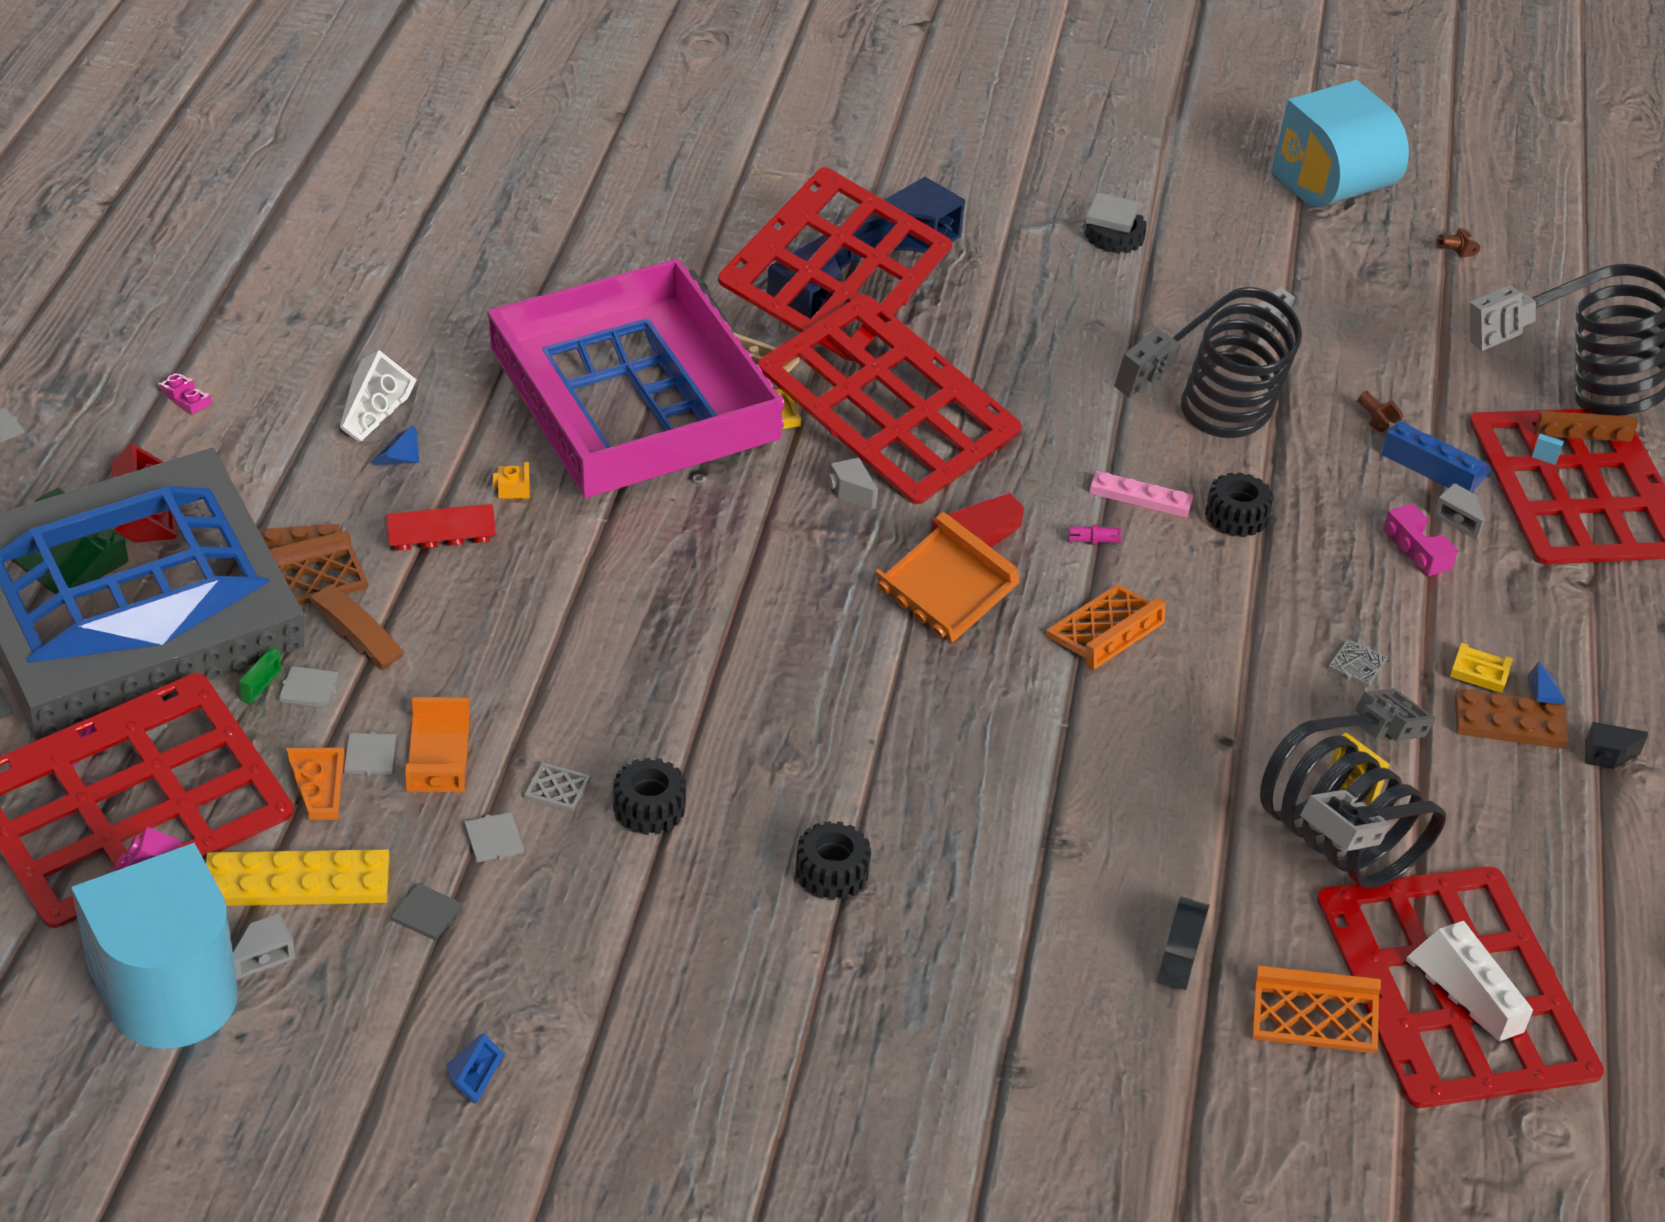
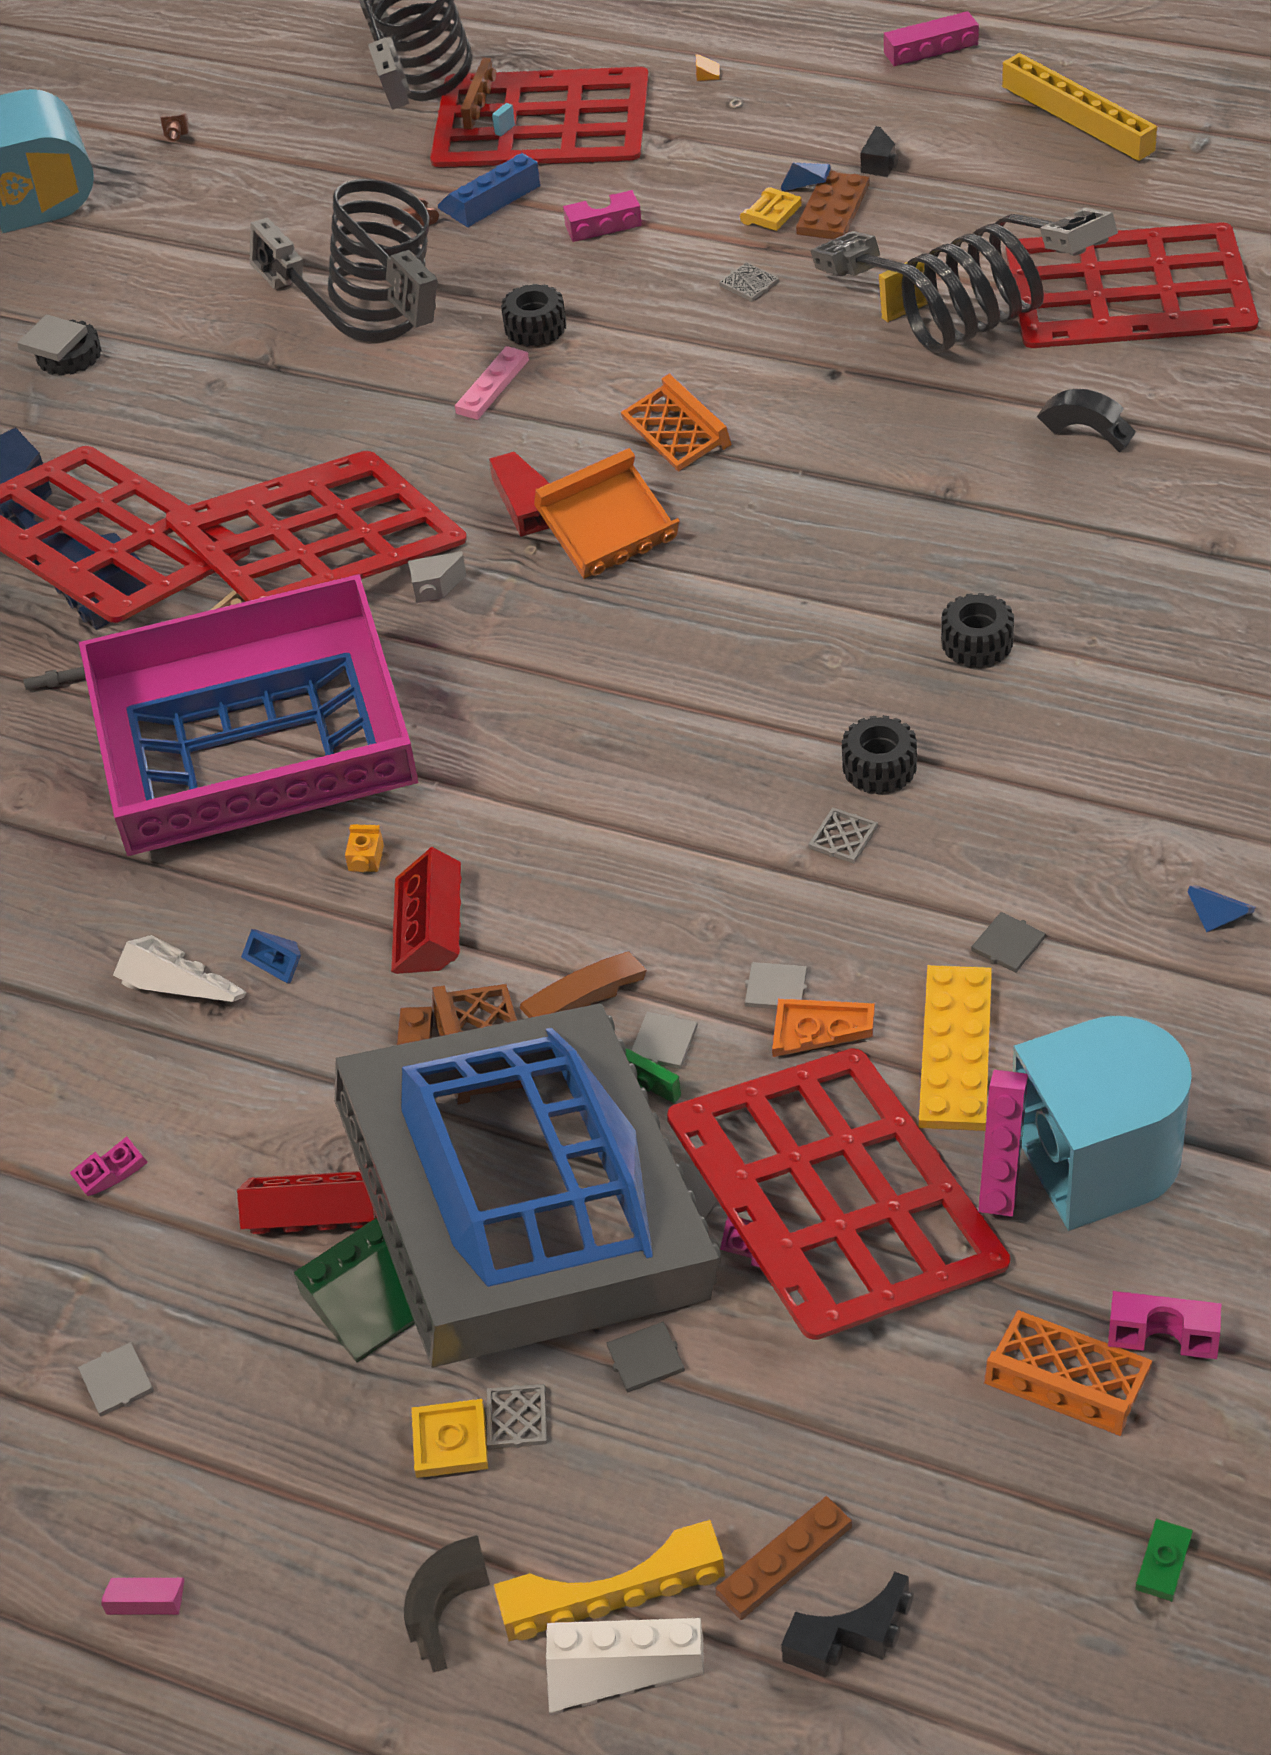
camera: 70 degrees left, 5 degrees up
(438, 745) = (778, 927): orange panel -> none
(494, 837) = (909, 887): light grey piece -> none
(1094, 534) = (548, 417): dark pink pin -> none
(1313, 986) = (1147, 347): orange fence -> none
(1460, 510) = (569, 185): light grey slope -> none
(1473, 979) = (1143, 263): white wedge -> none

